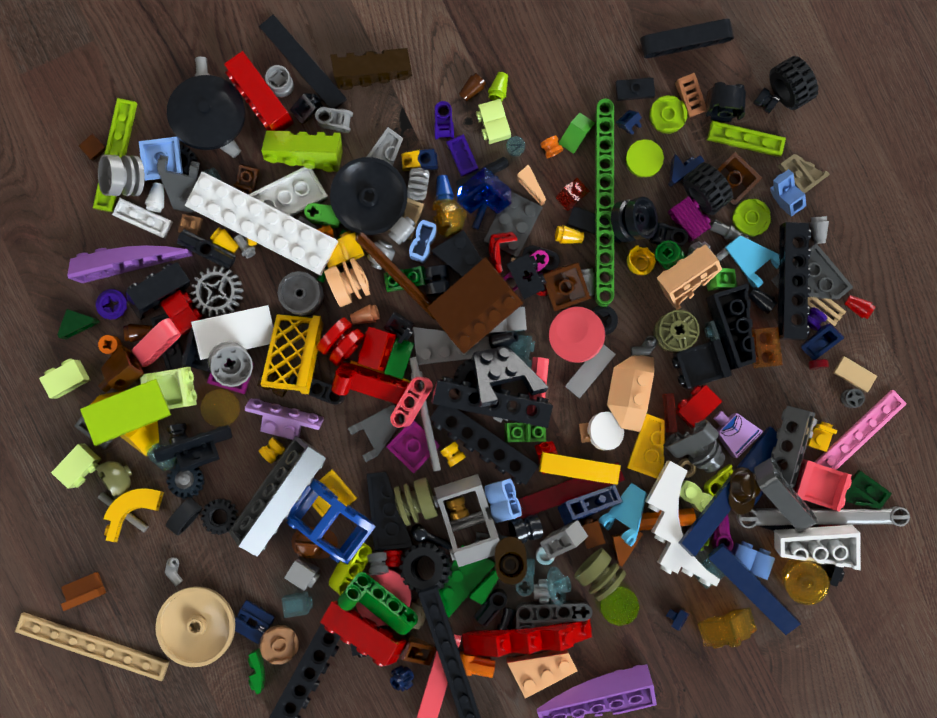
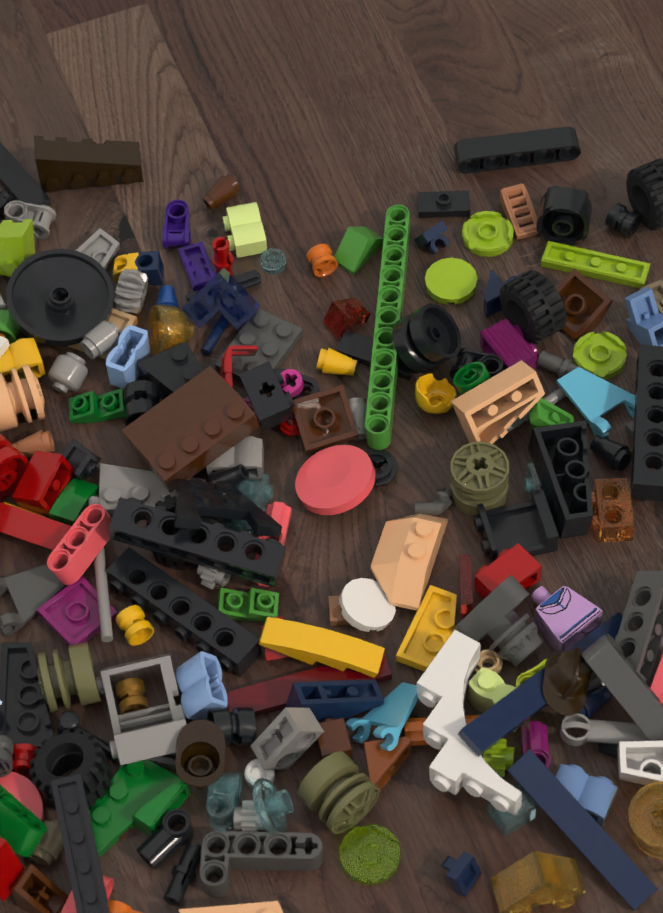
camera: 10 degrees right, 30 degrees down
(393, 271) = (84, 389): reddish brown axle -> none
(481, 154) = (222, 255): none -> red pin
(499, 87) = (257, 192): lime cone -> none
(526, 641) = (214, 868): red arch -> none
(529, 182) = (286, 299): light nougat slope -> none
(589, 372) = (351, 531): light grey tile -> none

